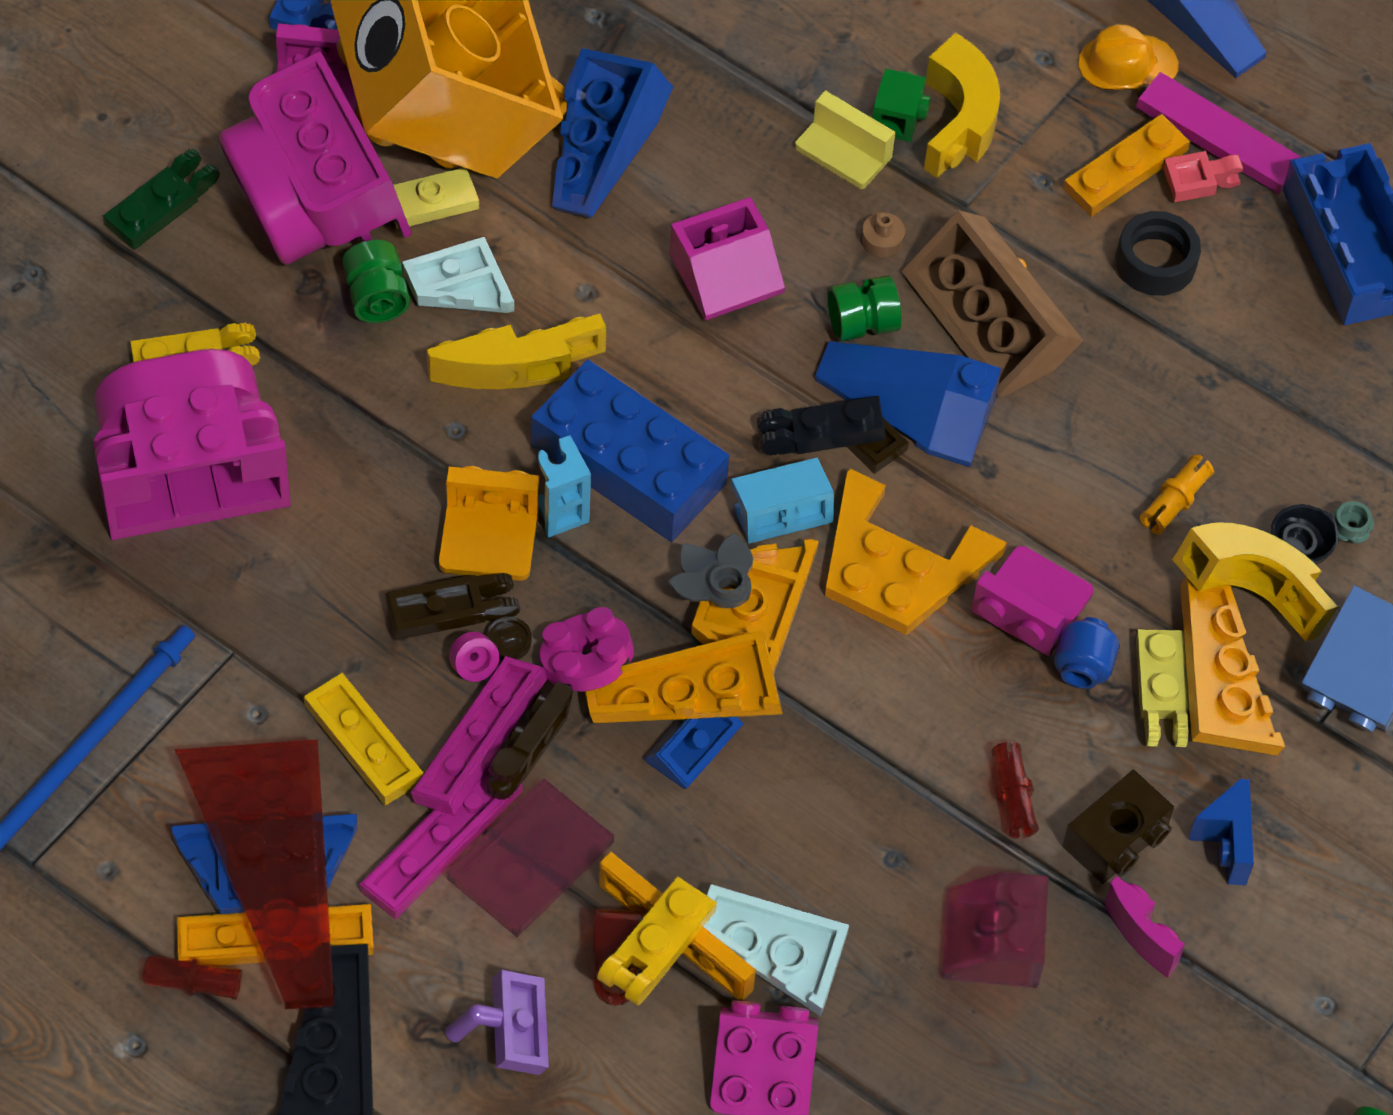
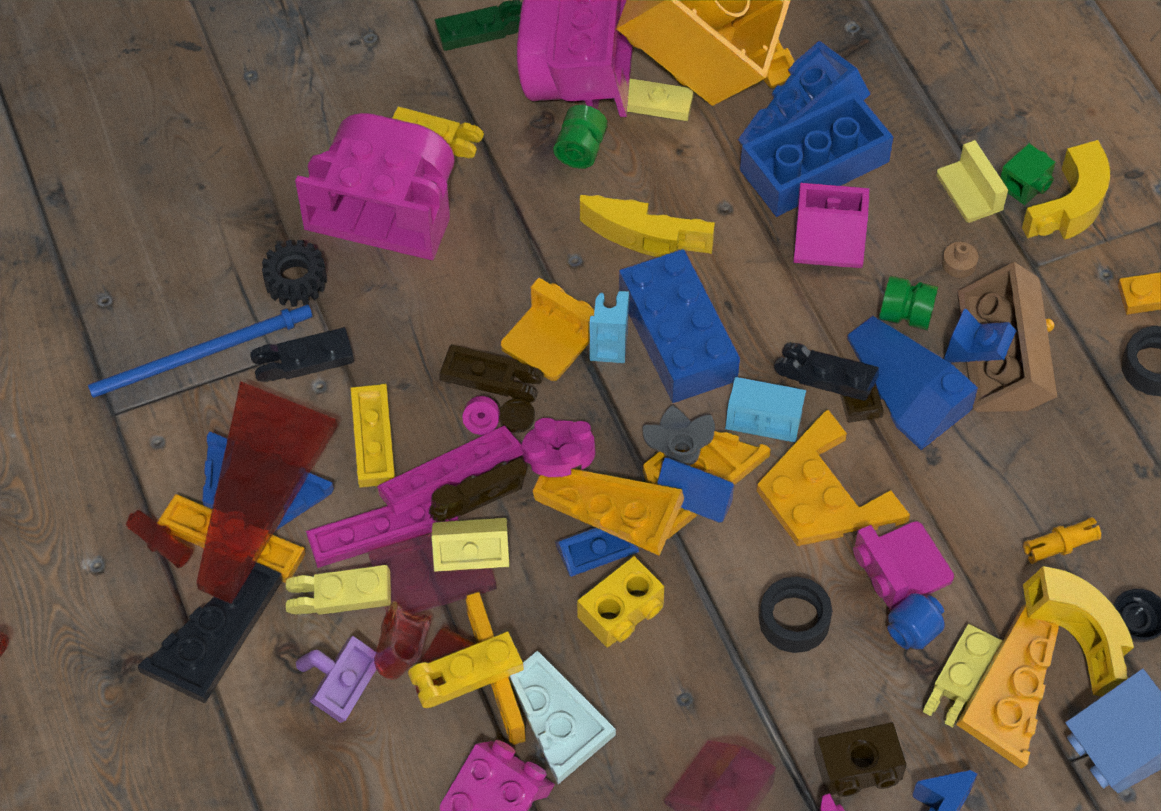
camera: 35 degrees right, 0 degrees up
(141, 573) = (290, 257): none -> black tyre
(218, 686) = (303, 356): none -> black hinge
(447, 929) = (341, 591): none -> light yellow hinge
(459, 279) = (640, 159): light aqua wing -> none
(555, 949) = (400, 641): none -> clear red piece
(563, 804) = (470, 544): none -> light yellow panel
(658, 181) = (819, 148): none -> blue brick
(760, 786) = (614, 597): none -> yellow brick
(786, 621) = (702, 491): none -> blue slope
(957, 677) = (802, 589): none -> black tyre
(967, 318) = (979, 341): none -> blue slope
(1015, 790) = (802, 694): clear red pin -> none

